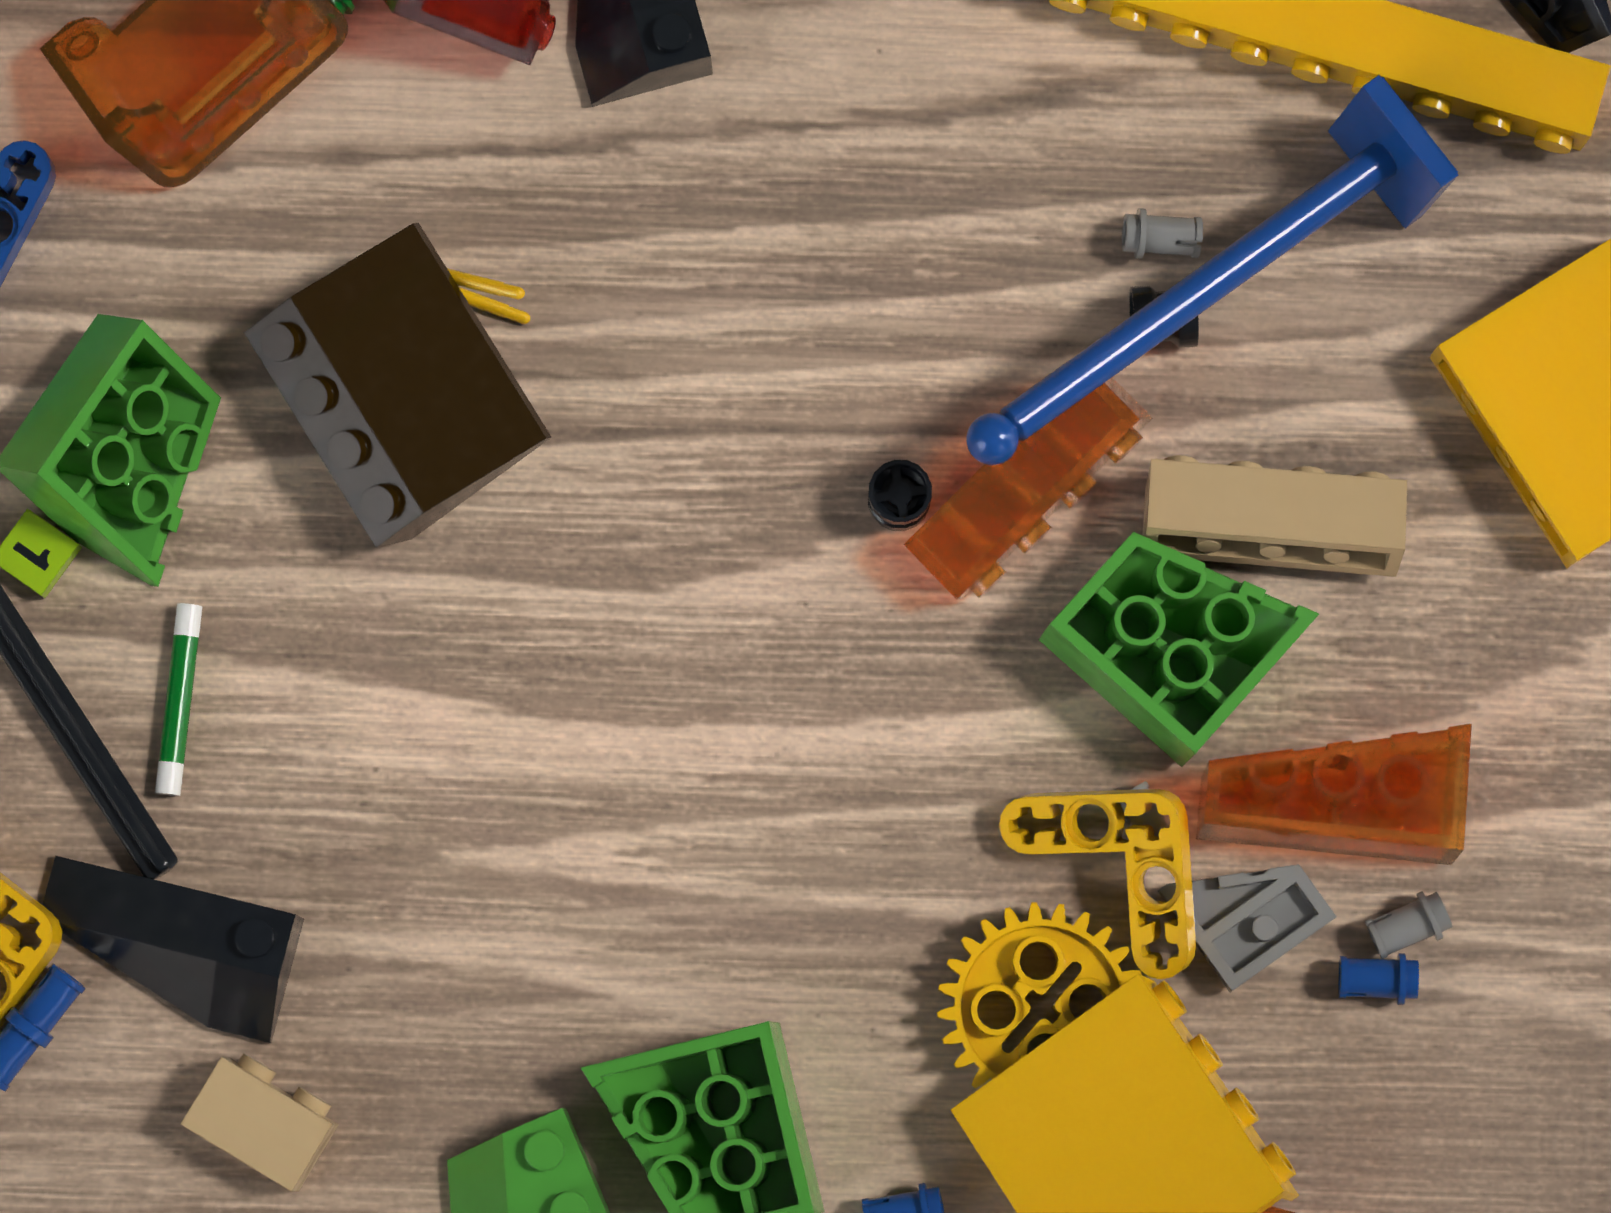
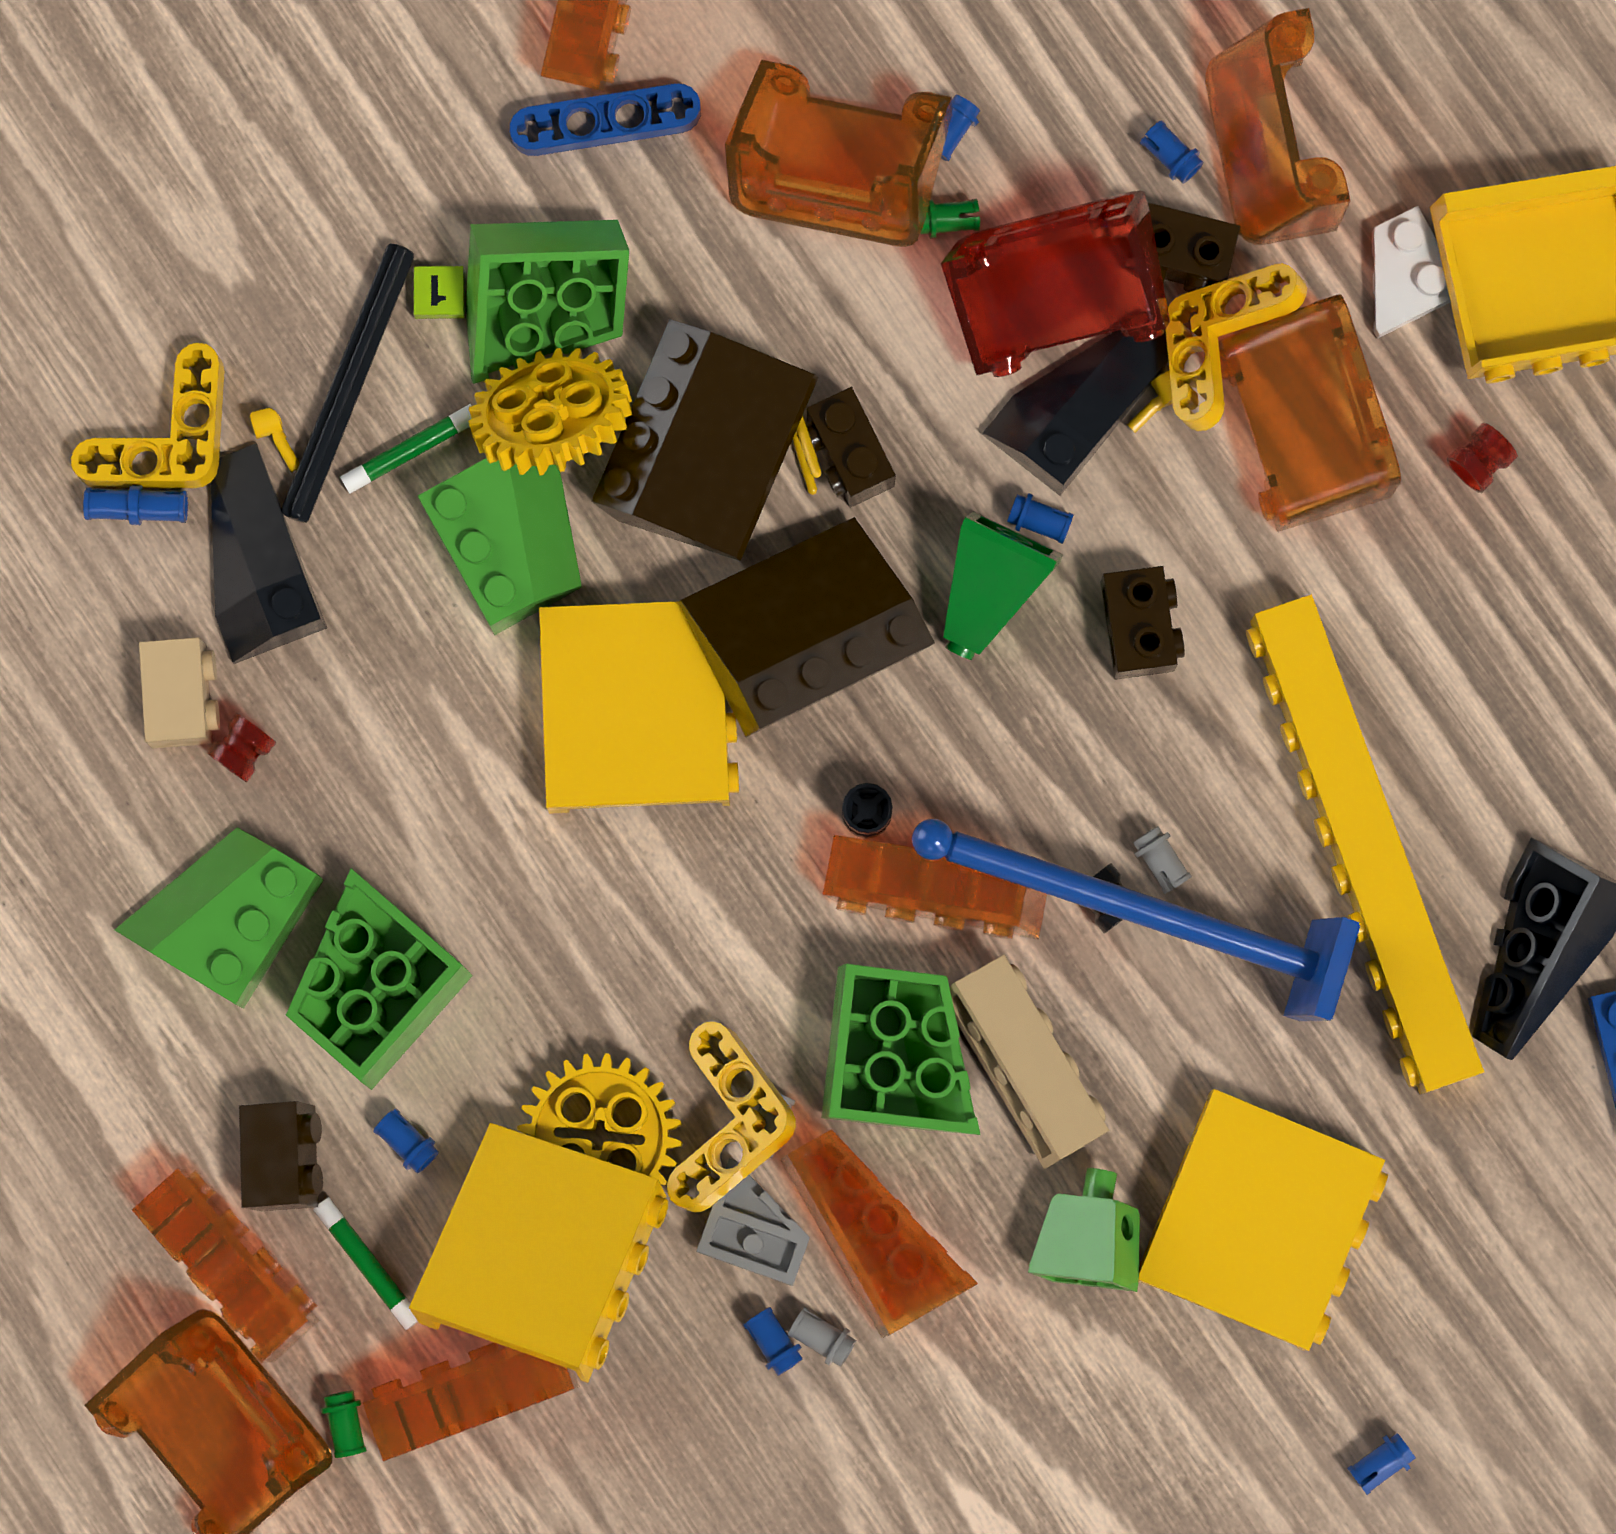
camera: 55 degrees right, 0 degrees up
(43, 828) = (267, 423): none -> yellow hand
(251, 522) = (550, 411): none -> yellow gear
(342, 659) = (506, 538): none -> bright green wedge
(367, 1095) = (241, 747): none -> clear red wheel
(512, 245) = (850, 447): none -> dark brown brick
(621, 652) = (631, 710): none -> yellow panel
(665, 420) = (804, 625): none -> dark brown slope
(722, 108) = (1039, 518): none -> blue pin
(758, 201) = (991, 582): none -> green slope
(904, 82) = (1140, 622): none -> dark brown brick
(1501, 578) = (1090, 1238): none -> bright green torso

